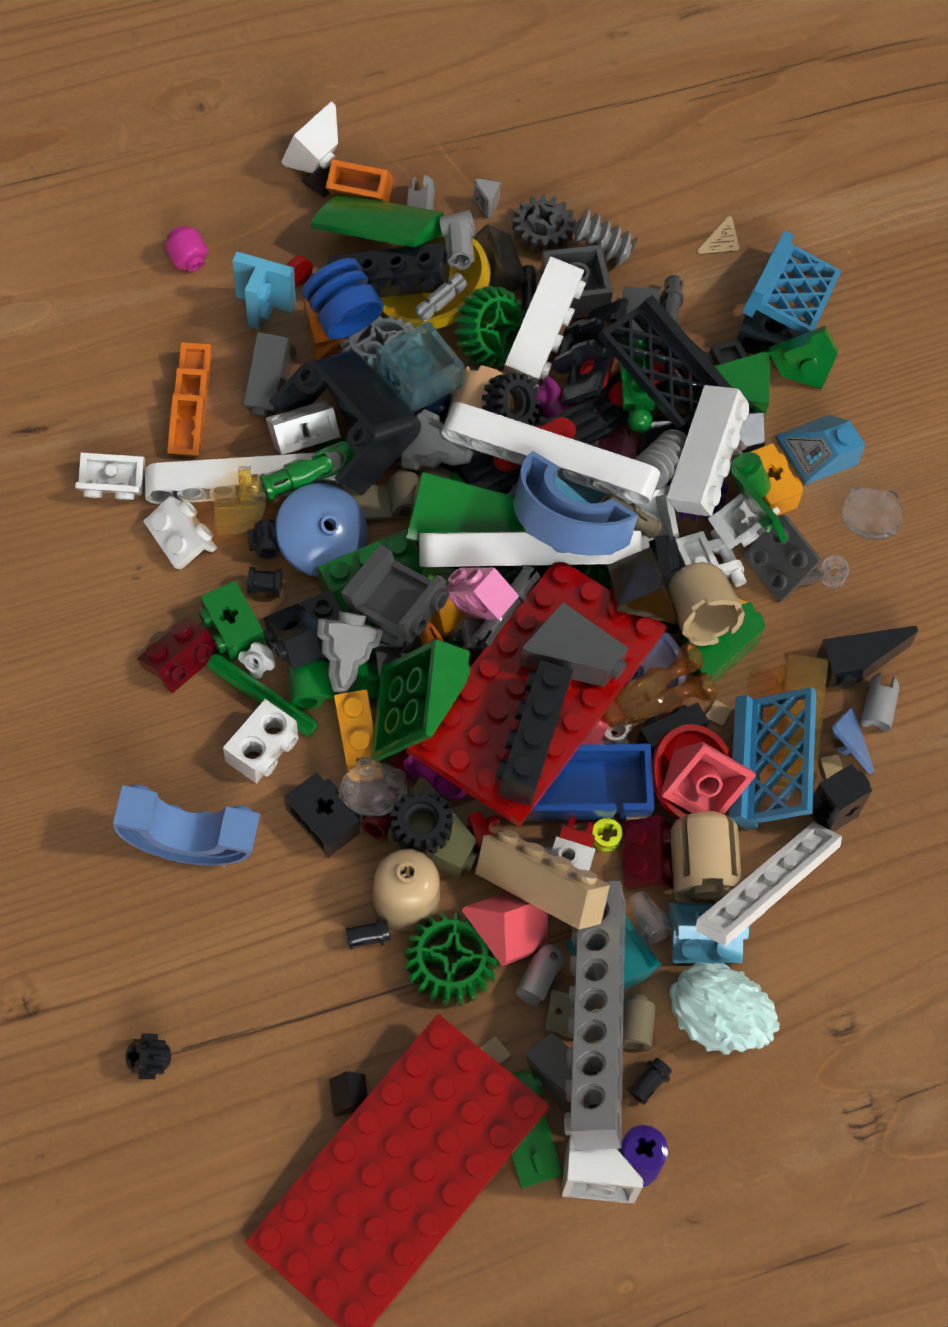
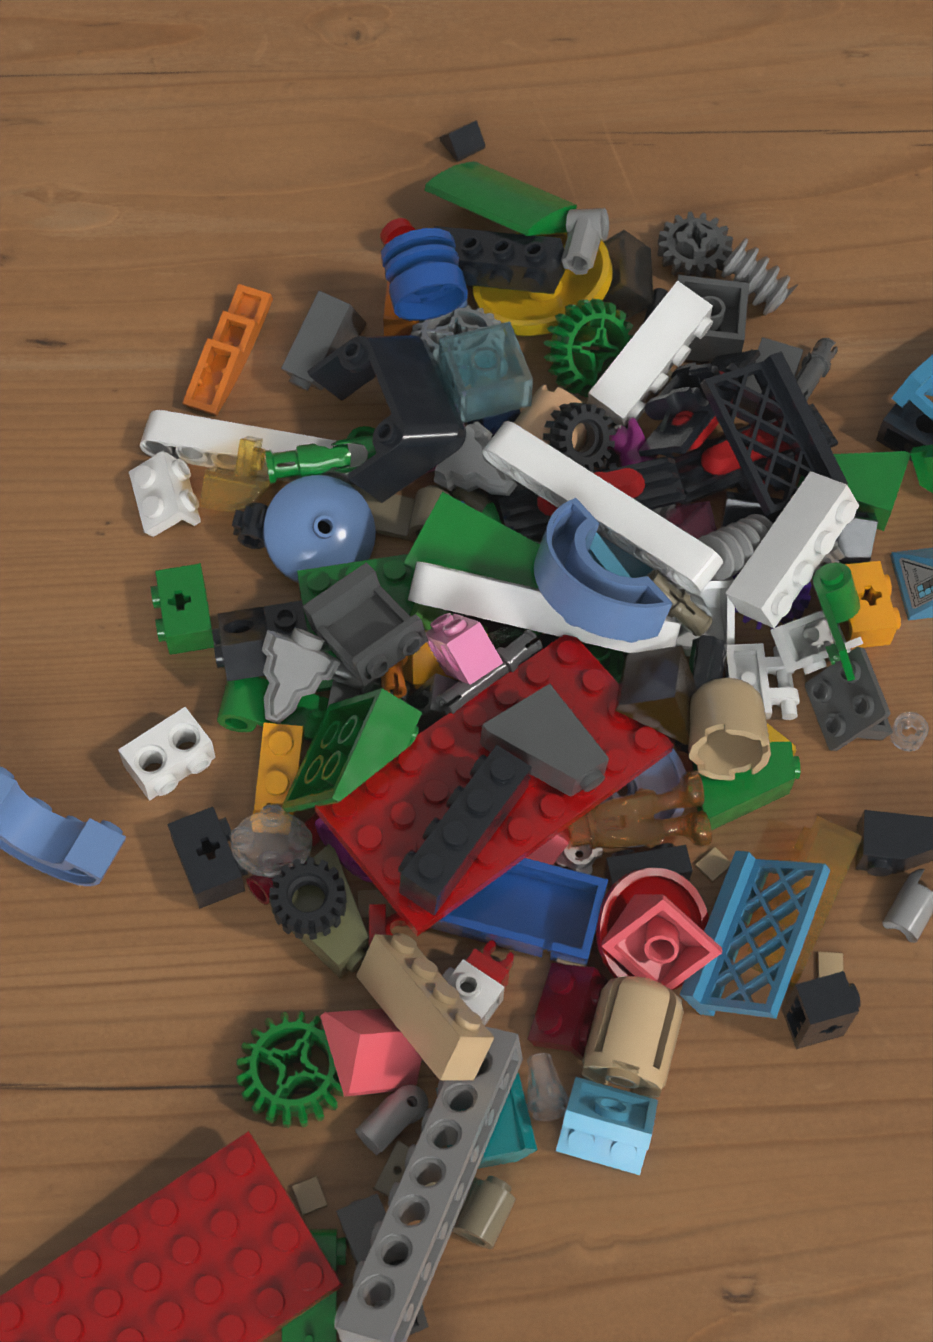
camera: 20 degrees right, 0 degrees up
(111, 474) = (110, 411): white bracket -> none
(179, 654) = (114, 631): dark red bracket -> none
(186, 248) = (282, 183): dark pink head -> none
(259, 692) = (187, 697): green axle -> none
(262, 655) = (197, 659): white plate -> none
(263, 287) = (348, 244): medium azure bracket -> none
(264, 582) = (237, 573): black bush -> none
(303, 427) = (339, 410): white brick -> none
(314, 142) = (461, 97): white slope -> none
(347, 1092) = (122, 1192): black slope -> none
(359, 181) = (499, 151): orange piece -> none
(368, 934) = (210, 1012): black pin -> none
(406, 898) = (268, 985): tan cylinder -> none
(421, 198) = (566, 185): light grey piece -> none
(440, 297) = (541, 299): light grey axle -> none
(486, 196) = (640, 200): light grey slope -> none
(613, 843) = (533, 985): neon yellow bush -> none
(634, 397) = (726, 468): green plate -> none
(650, 1080) = (479, 1287): black pin -> none
(722, 239) = (901, 312): tan sticker -> none
(723, 1008) = (593, 1226): light aqua hair -> none
(727, 352) = (863, 441): pearl dark grey plate -> none
(768, 884) = (695, 1089): white plate -> none
(849, 732) = (863, 935): medium blue piece -> none

